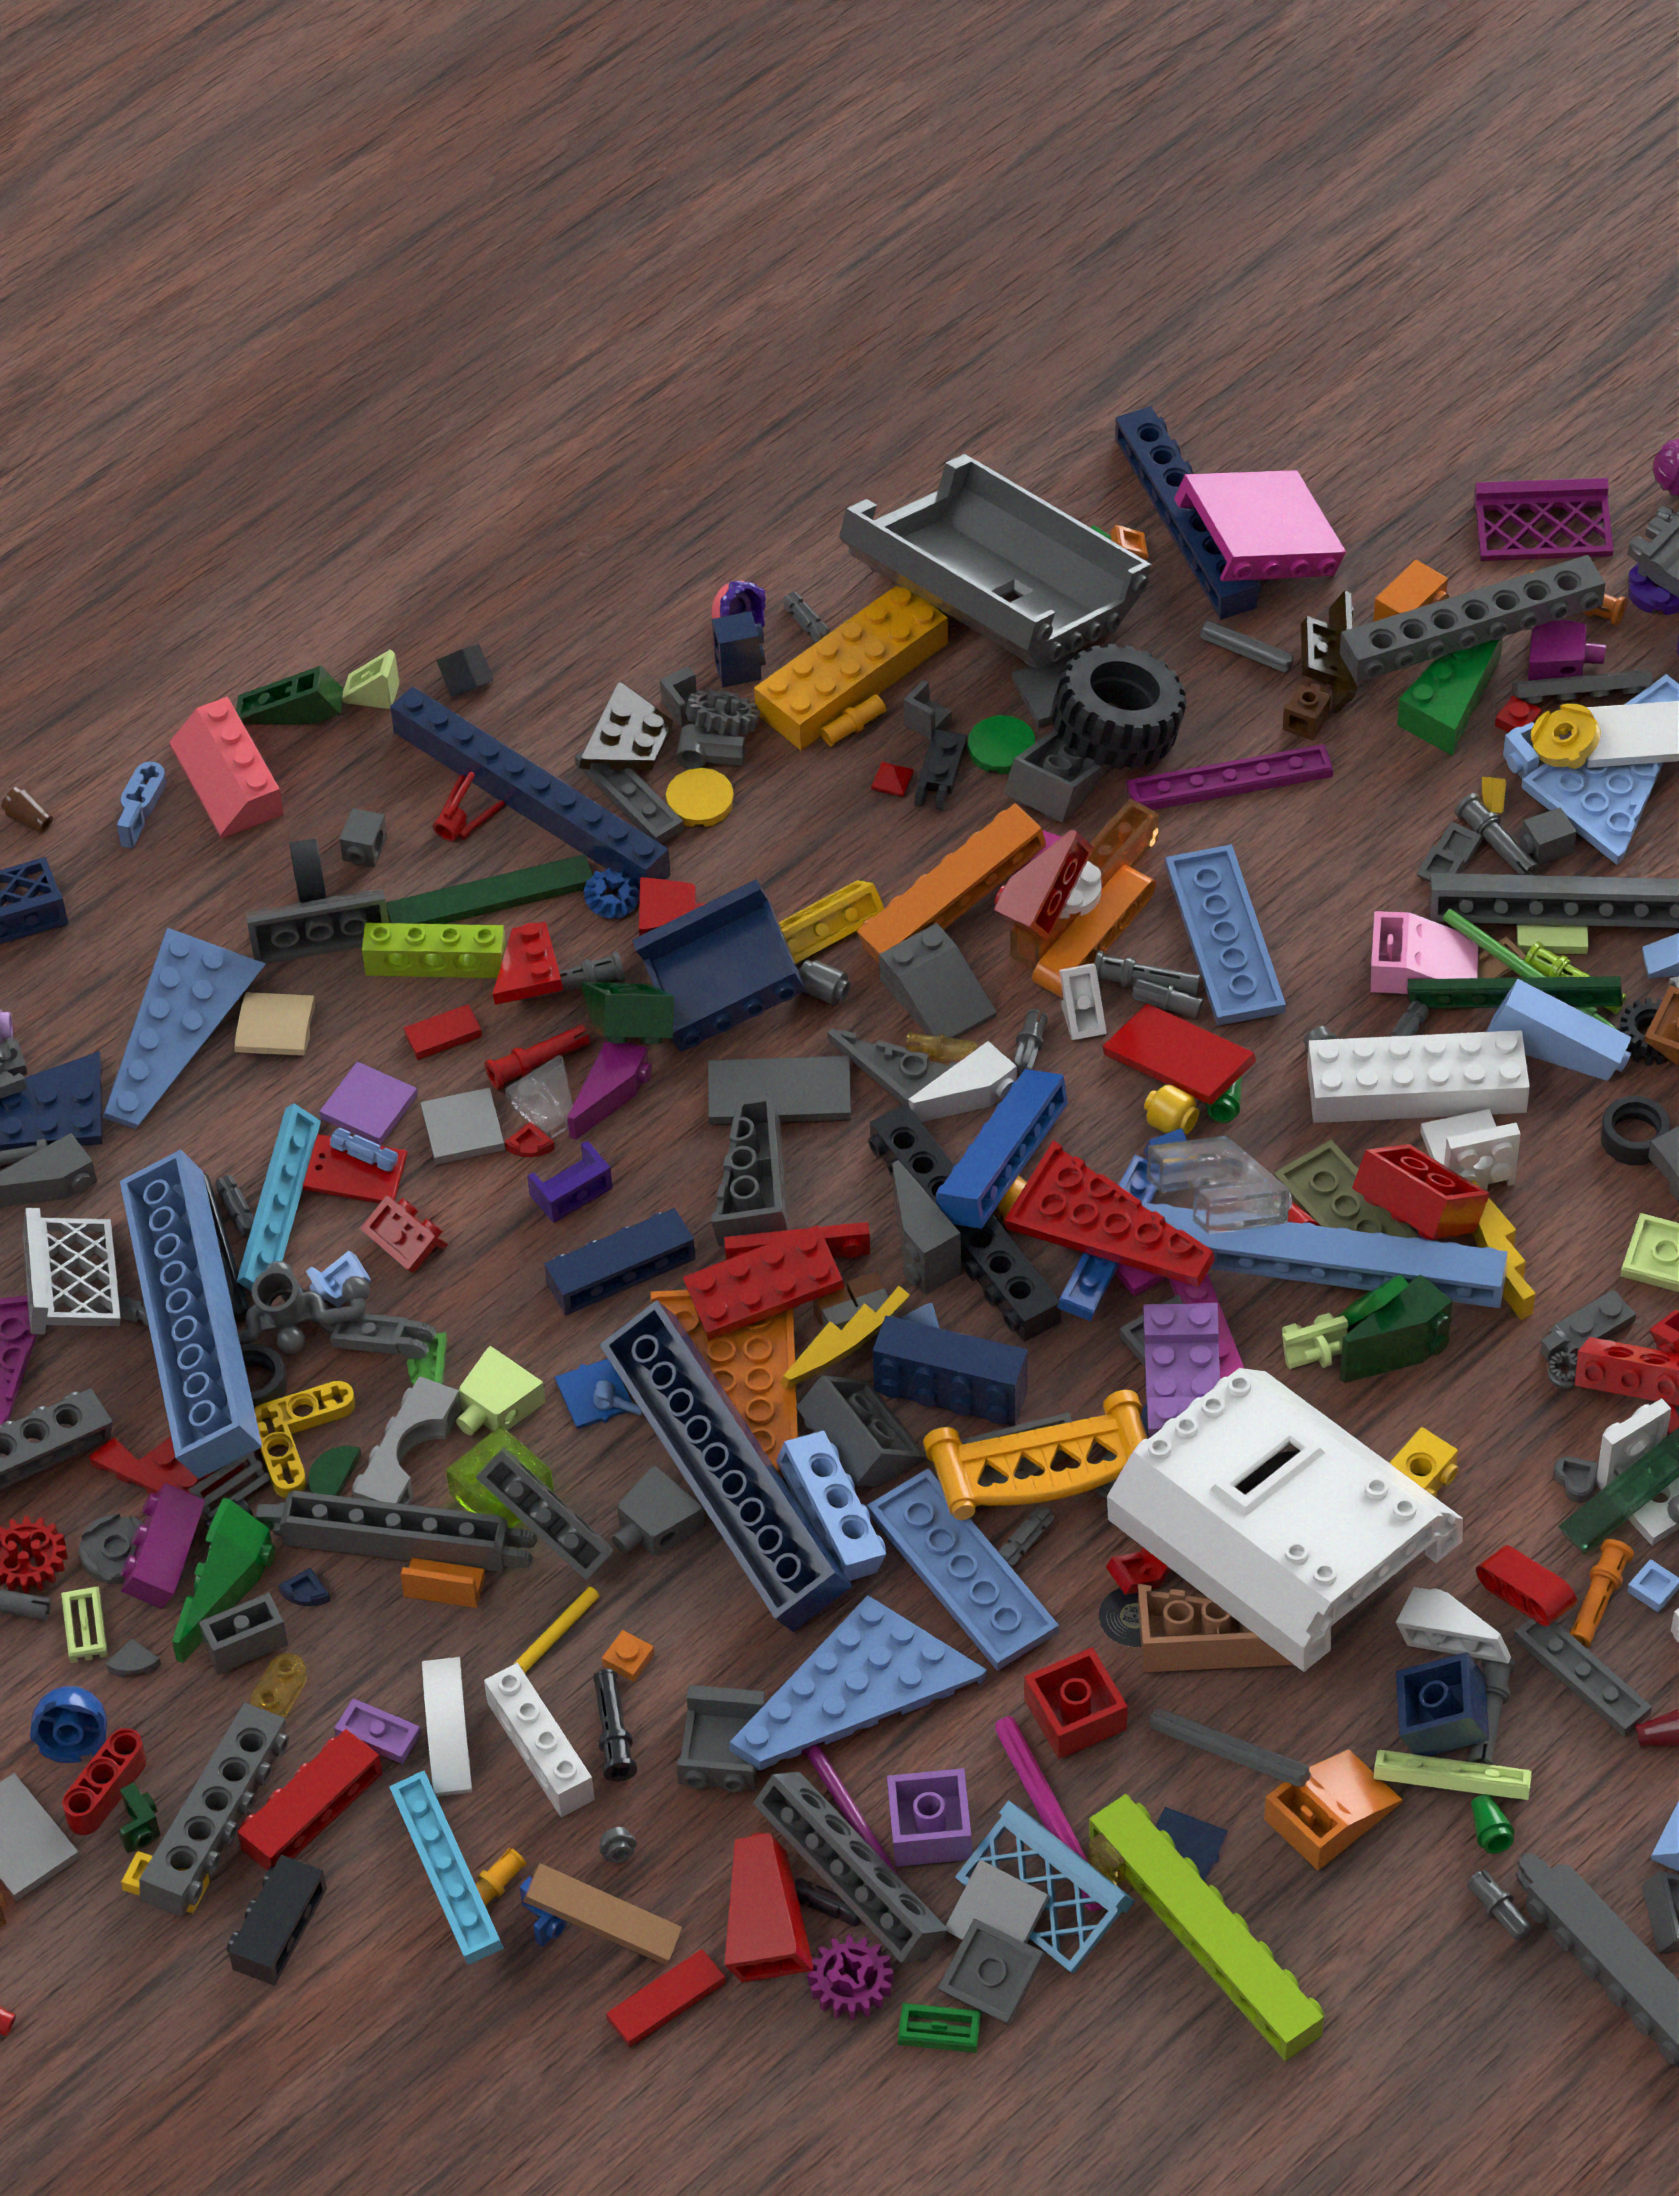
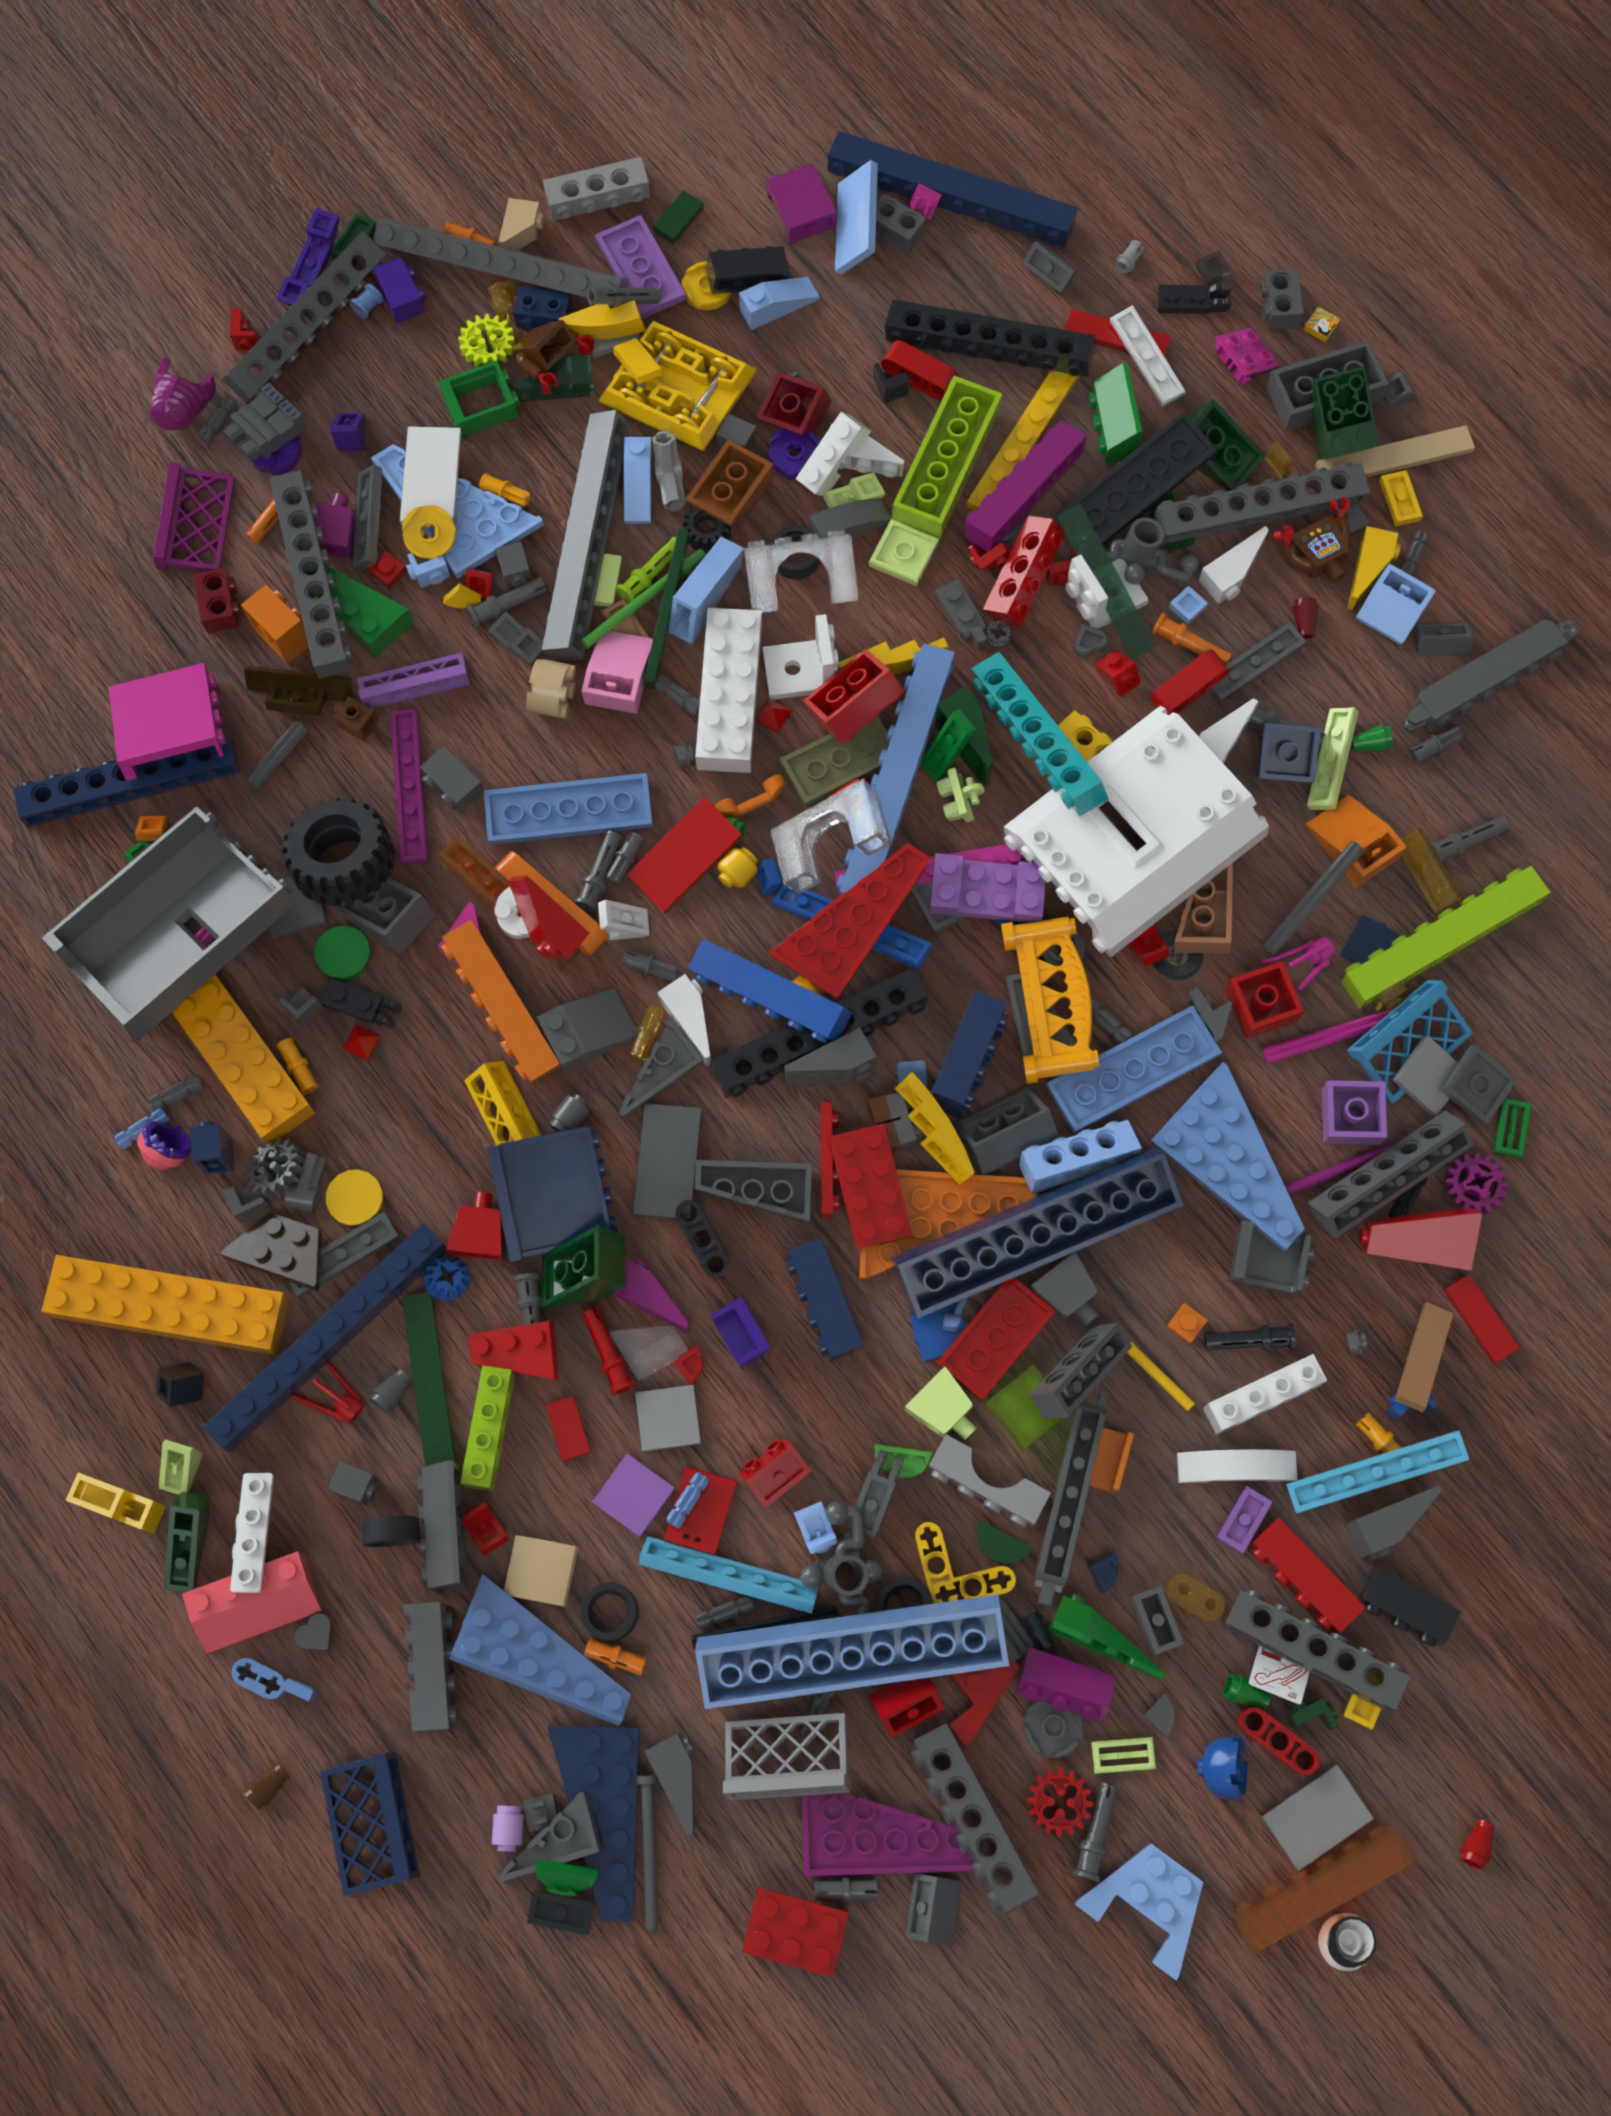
camera: 85 degrees left, 20 degrees up
(133, 1383) = (906, 1704): none -> red brick
(134, 935) = (430, 1666): none -> dark grey wedge
(162, 1745) = (1241, 1693): none -> green cone
(177, 1773) = (1278, 1676): none -> white sticker
(179, 1105) = (615, 1656): none -> orange pin
(195, 833) = (315, 1634): none -> dark grey tile
(226, 1072) = (588, 1603): none -> black tyre
(297, 748) = (252, 1533): none -> white bracket
(319, 963) = (484, 1528): none -> red bracket
(328, 634) = (116, 1503): none -> yellow slope
(376, 1880) = (1380, 1530): none -> dark grey slope
(470, 857) = (390, 1391): none -> dark grey cone
(553, 644) = (166, 1304): none -> light orange brick
(587, 1443) = (996, 1337): none -> red plate
(674, 1140) = (701, 1224): none -> black beam
(774, 605) = (125, 1139): none -> medium blue axle
(1046, 1645) = (1215, 1019): none -> dark grey slope
(1159, 1771) = (1316, 952): none -> dark pink plant
(1241, 812) = (451, 779): none -> dark grey brick
(1292, 1142) = (773, 788): none -> orange bar
(1302, 1900) = (1429, 871): none -> clear yellow plate
(1349, 1937) = (1456, 843): none -> dark grey pin
(1364, 767) = (413, 685): none -> medium lavender fence
(1377, 884) = (551, 688): none -> tan brick
(1396, 1132) = (773, 715): none -> red slope
(1397, 1386) = (1039, 734): none -> teal brick
(1443, 550) = (212, 601): none -> dark red brick
(1517, 807) = (479, 582): none -> red slope
(1533, 1509) = (1119, 671): none -> red bracket
(1628, 1152) = (833, 552): none -> clear arch
(1654, 815) = (505, 490): none -> light orange axle

